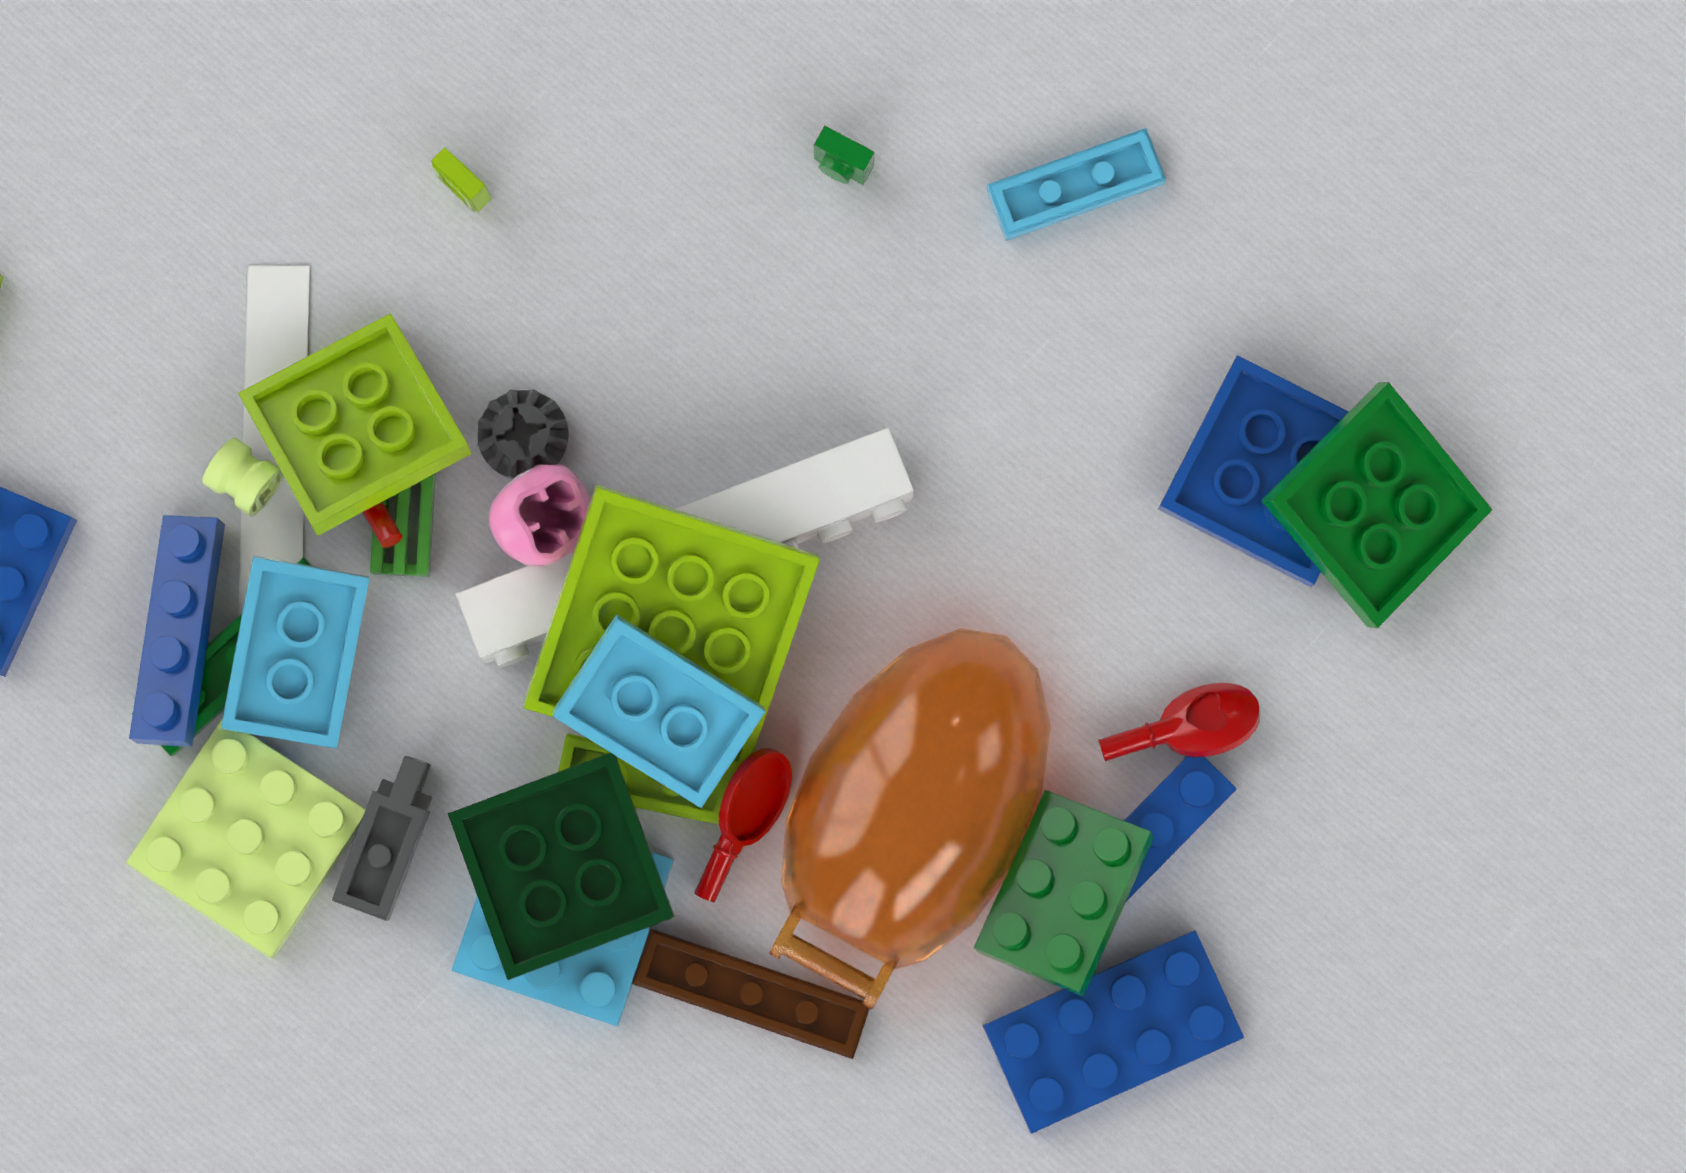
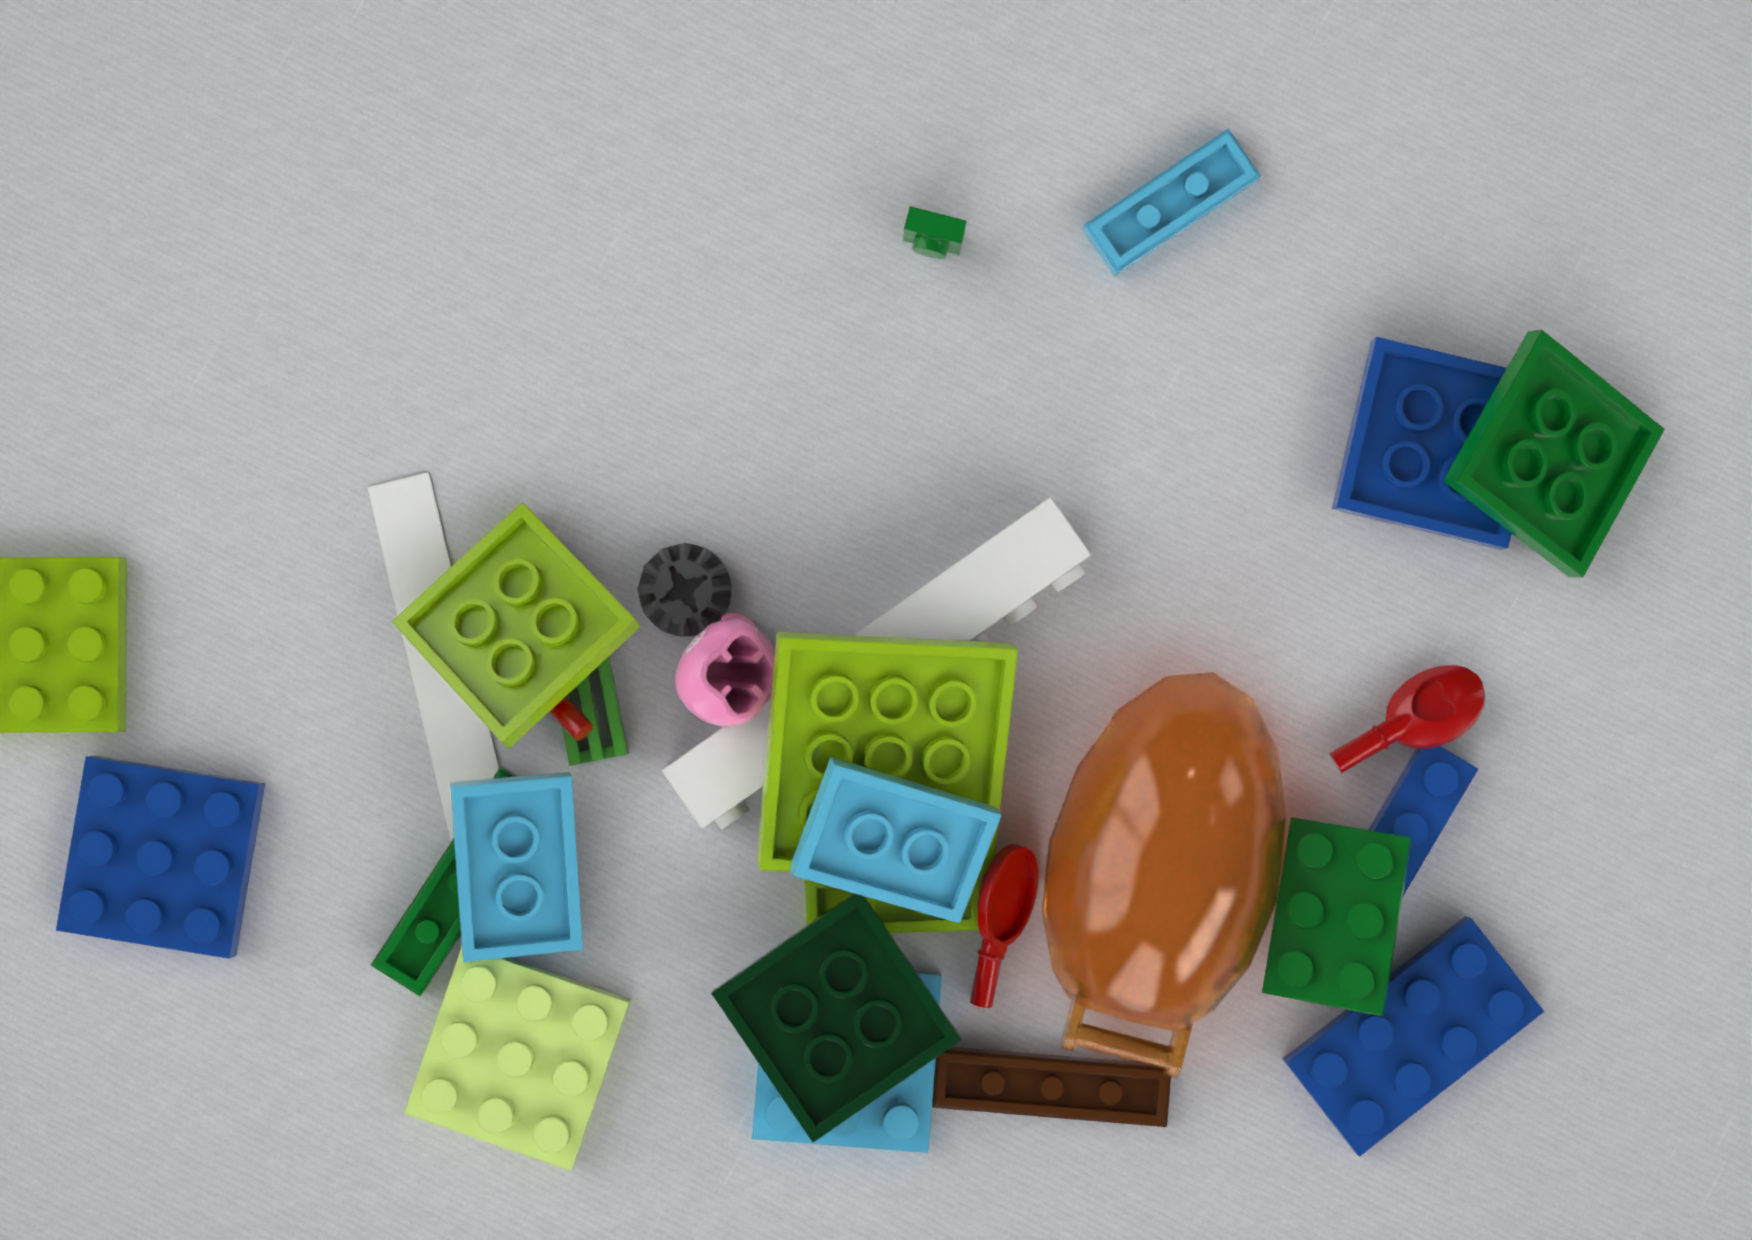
camera: 10 degrees left, 5 degrees up
(177, 631) = (394, 872): blue plate -> none
(242, 476) = (417, 703): yellowish green wheel -> none
(386, 842) = (655, 1029): dark grey hinge -> none
(460, 180) = (557, 350): lime tile -> none

